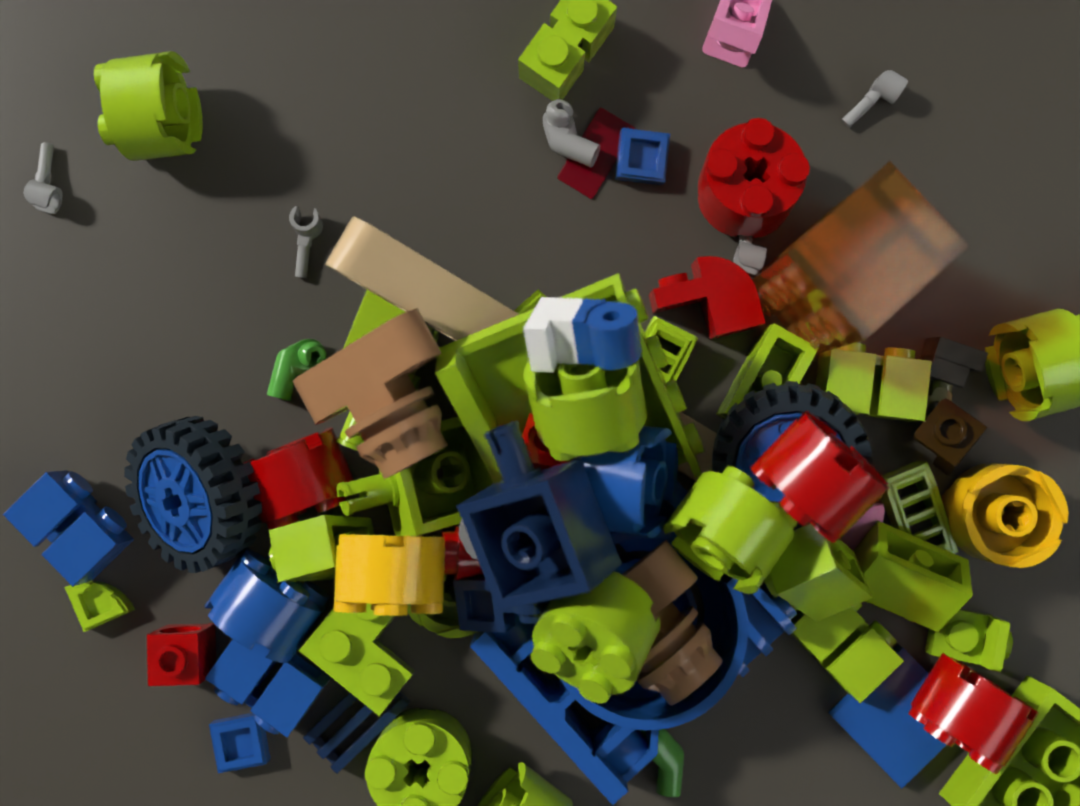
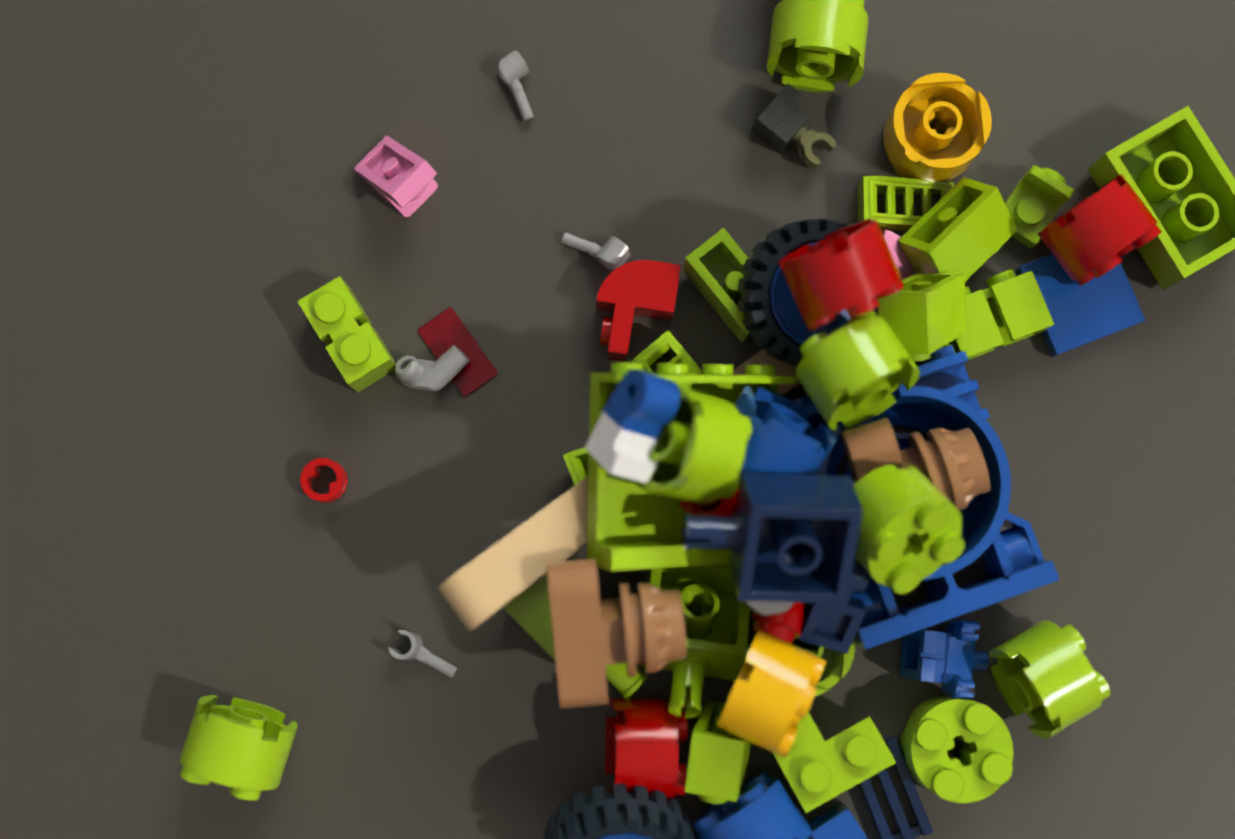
camera: 80 degrees left, 5 degrees down
(292, 363) = (532, 712): bright green arm -> none
(427, 66) = (311, 472): none -> red bush
(498, 723) = (944, 657): none -> blue piece
(642, 156) = (480, 311): blue tile -> none
(669, 763) = (1045, 519): bright green arm -> none
(776, 176) = (541, 198): red brick -> none
(858, 262) = (665, 166): clear orange brick -> none
(874, 384) = (775, 191): lime piece -> none
(949, 434) = (846, 147): dark brown bracket -> none

